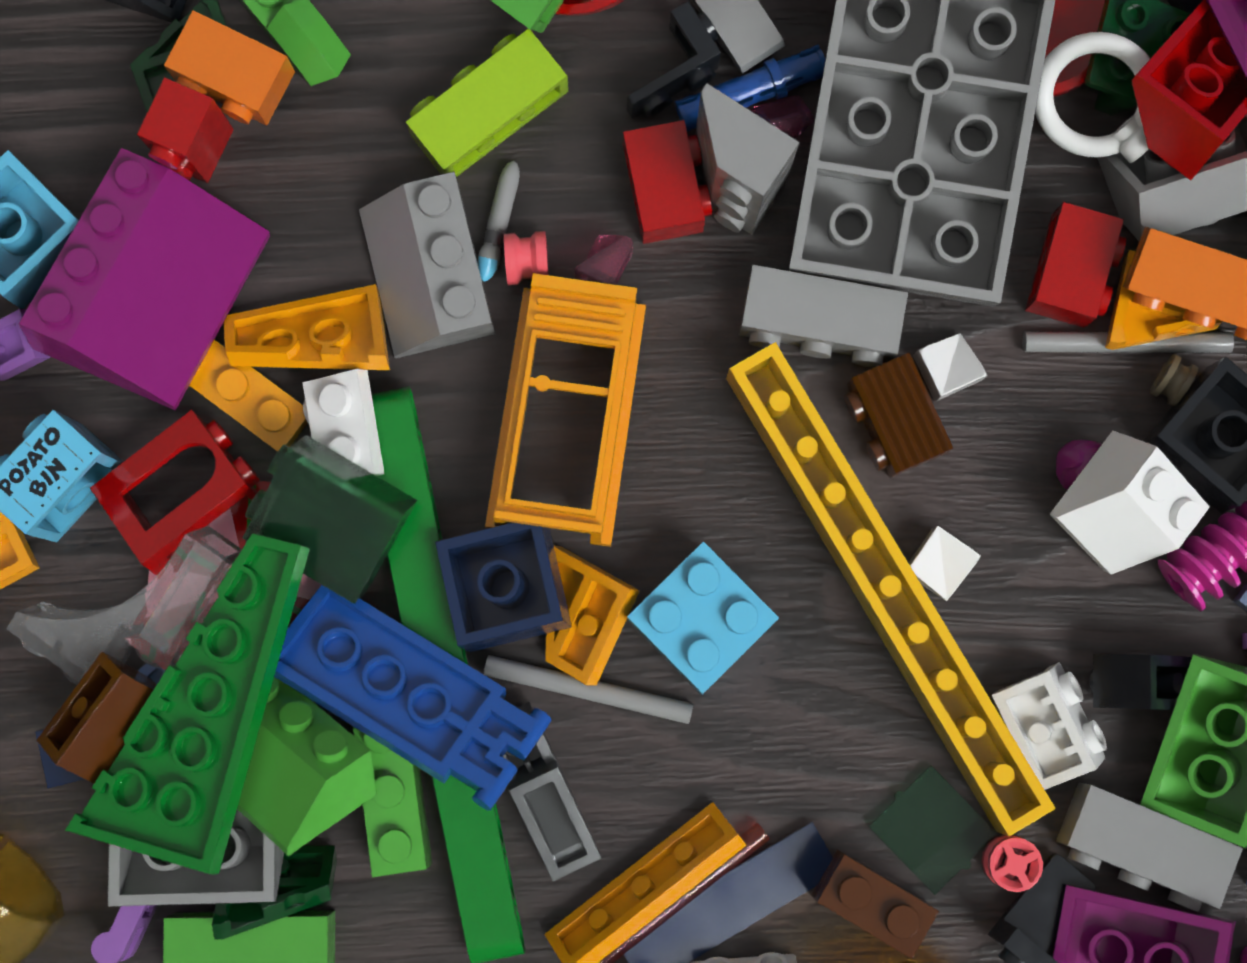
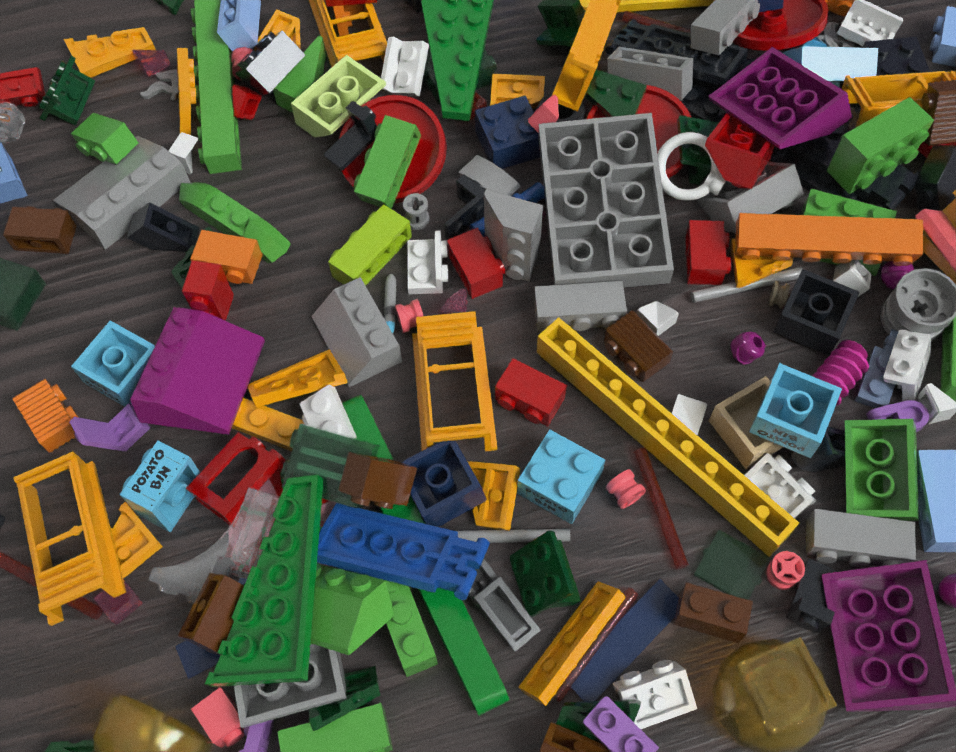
camera: 10 degrees left, 20 degrees down
(79, 872) = (219, 718): none -> coral brick
(395, 574) = (377, 480): none -> reddish brown brick
(573, 43) = (420, 210): none -> light grey bush
(578, 160) = (425, 265): none -> white bracket
(631, 776) = (544, 575): none -> dark green bracket
(692, 456) = (530, 392): none -> red brick
(801, 665) = (625, 489): none -> coral wheel
(850, 705) = (661, 508): none -> clear red bar
(1043, 612) = (734, 419): none -> tan piece
(1112, 631) = (795, 410): none -> medium azure brick
(1129, 505) = (778, 341): white slope -> none

